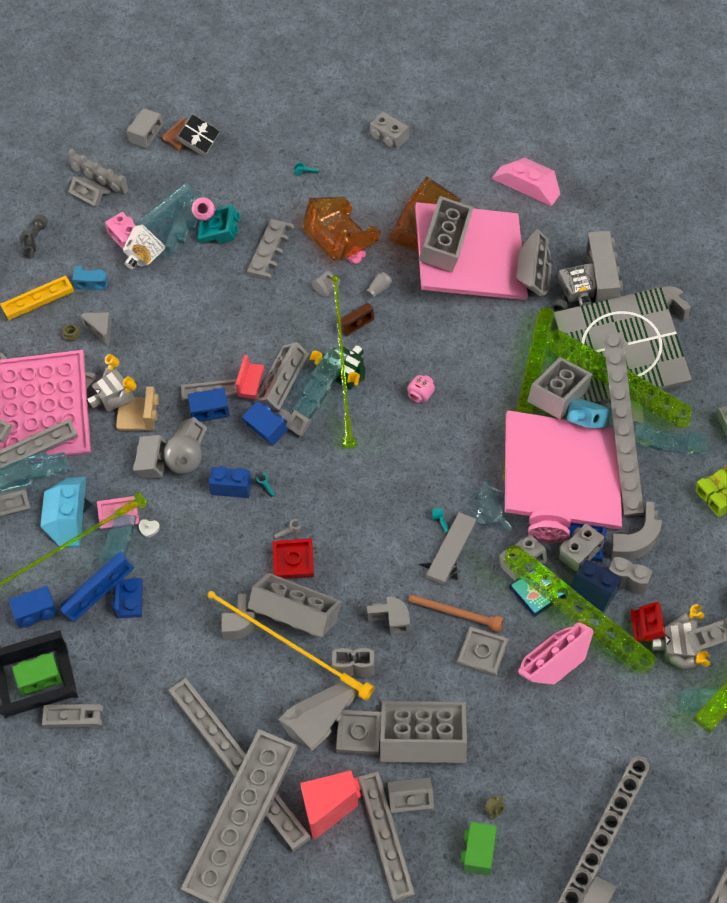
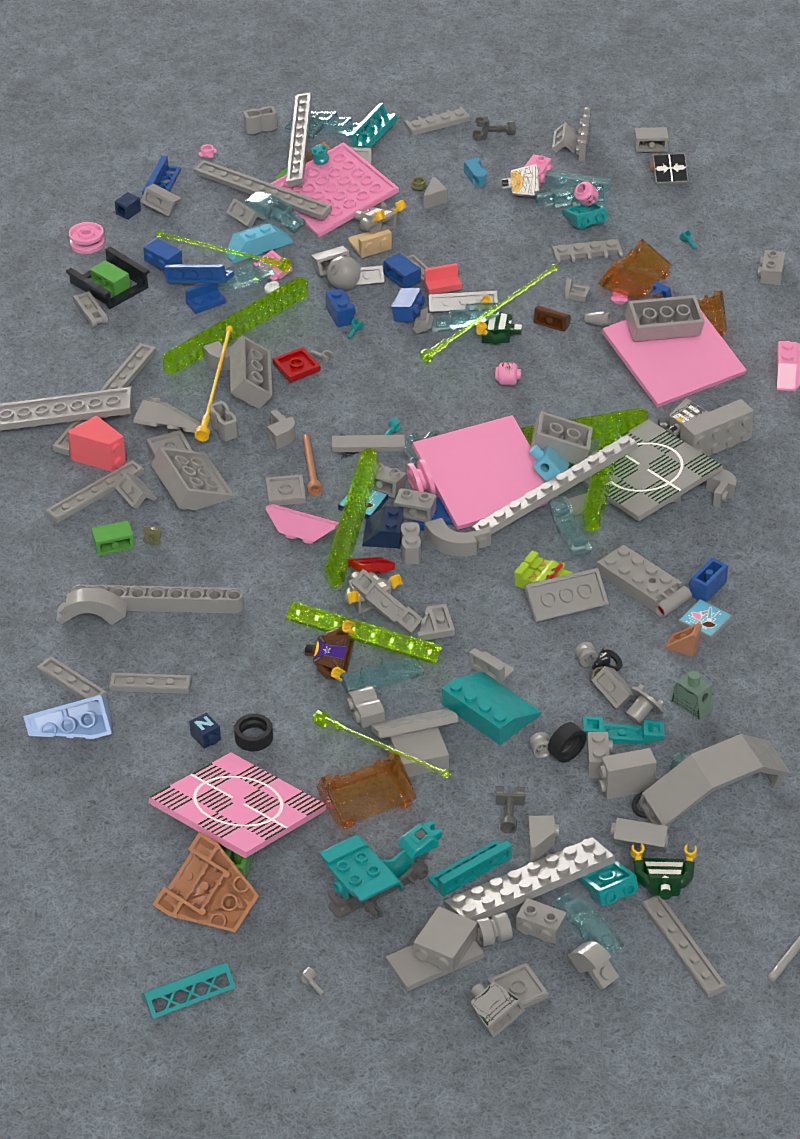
camera: 60 degrees right, 15 degrees down
(37, 297) = (436, 155): yellow plate -> none
(199, 593) = (241, 321): none -> clear neon green beam
(374, 220) = (660, 288): none -> blue tile
(535, 264) = (699, 389): light grey wedge -> none

